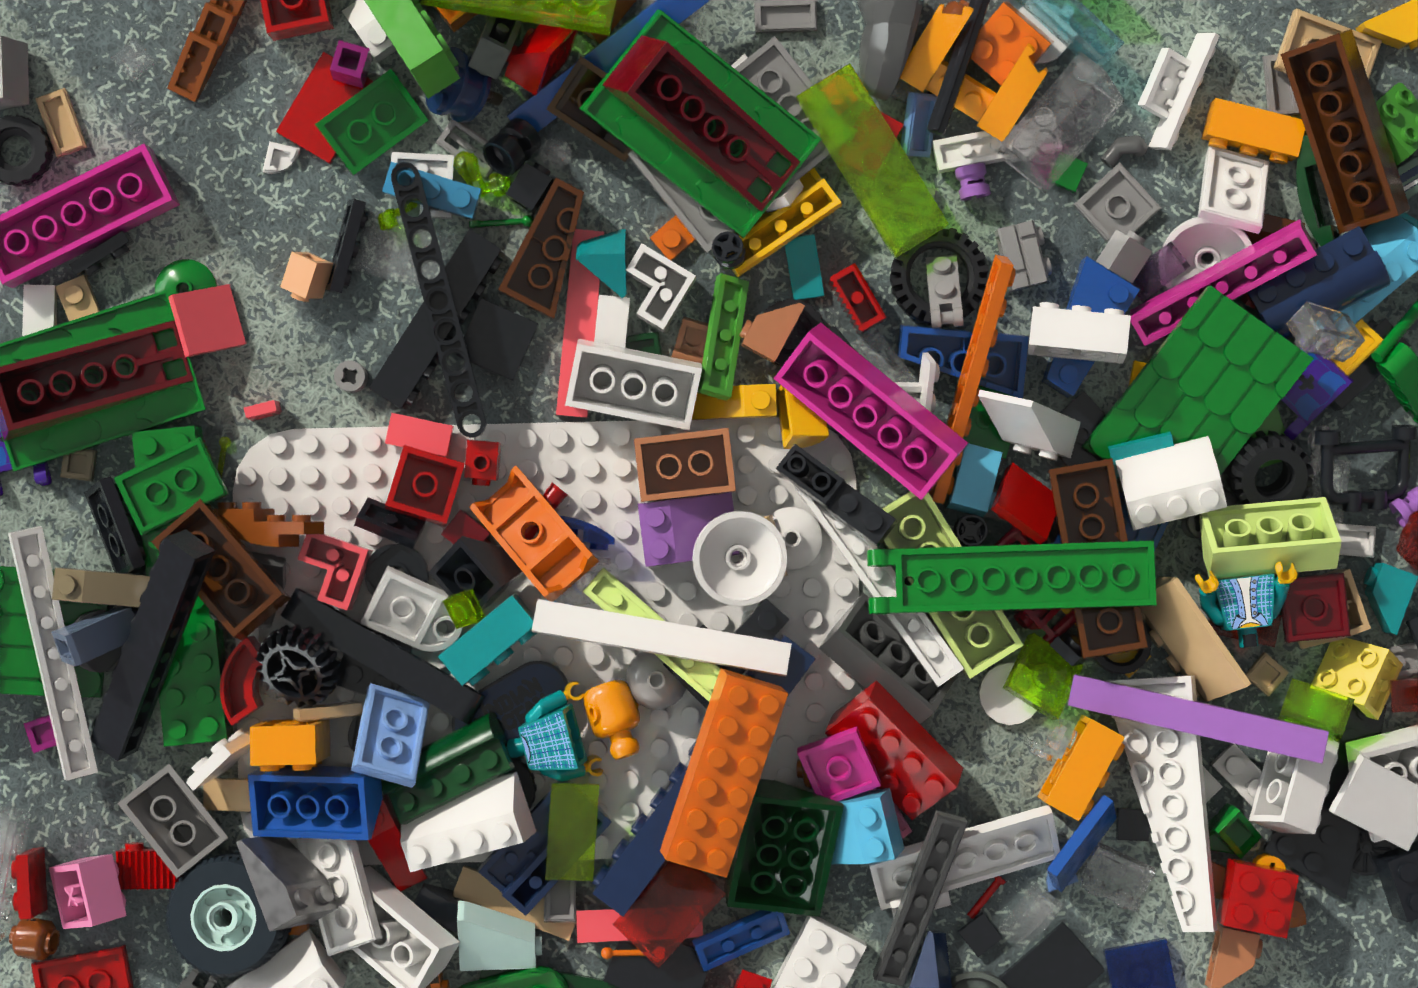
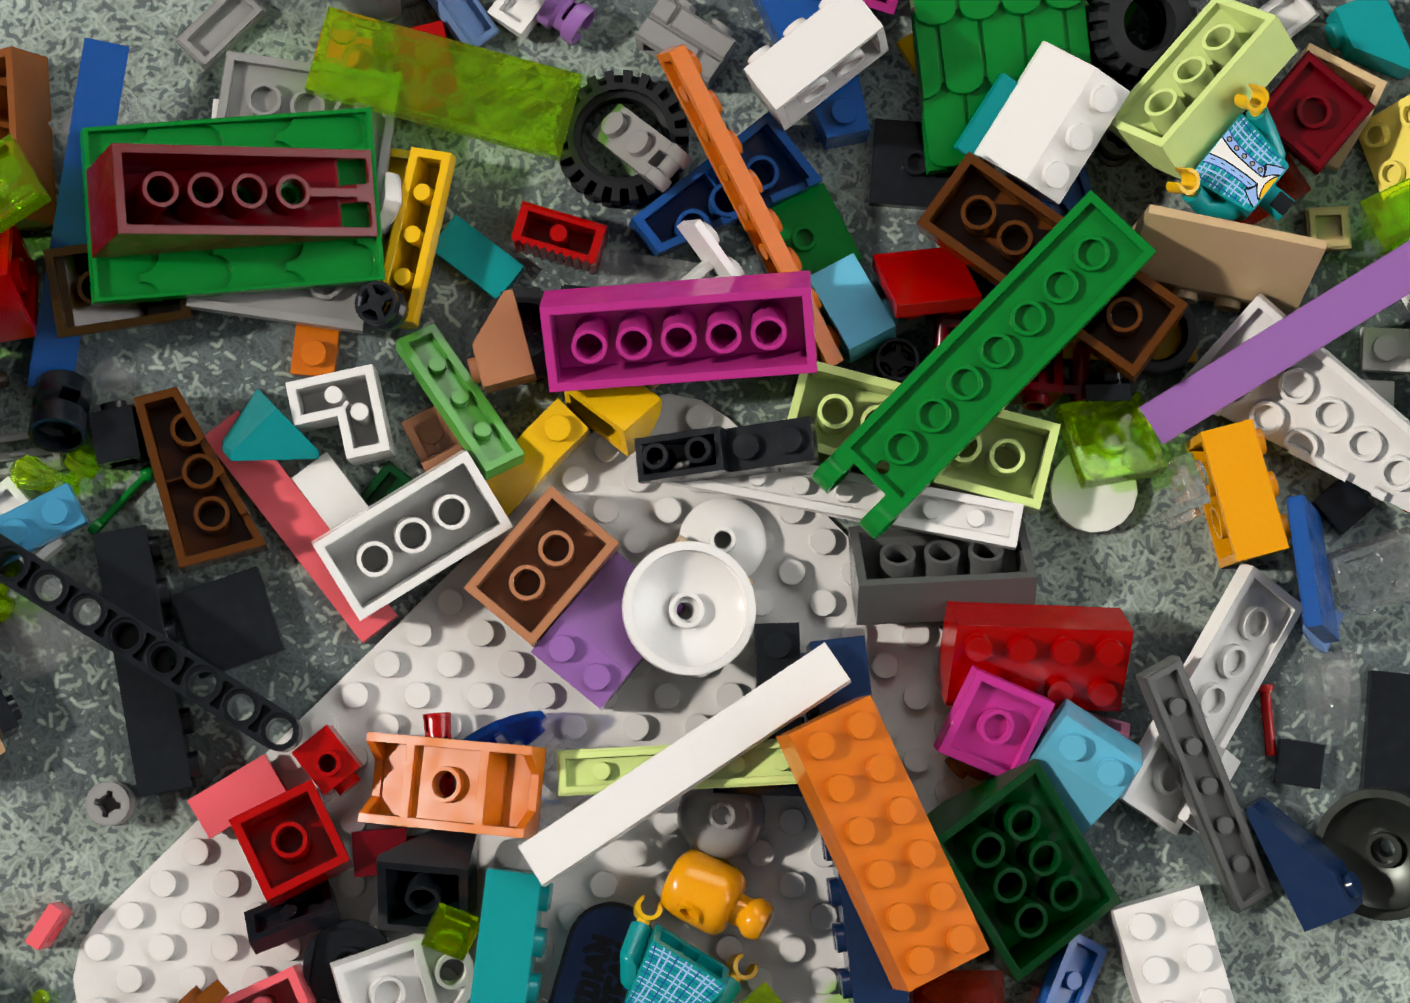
camera: 40 degrees left, 5 degrees down
(1031, 425) = (854, 196): white slope -> none

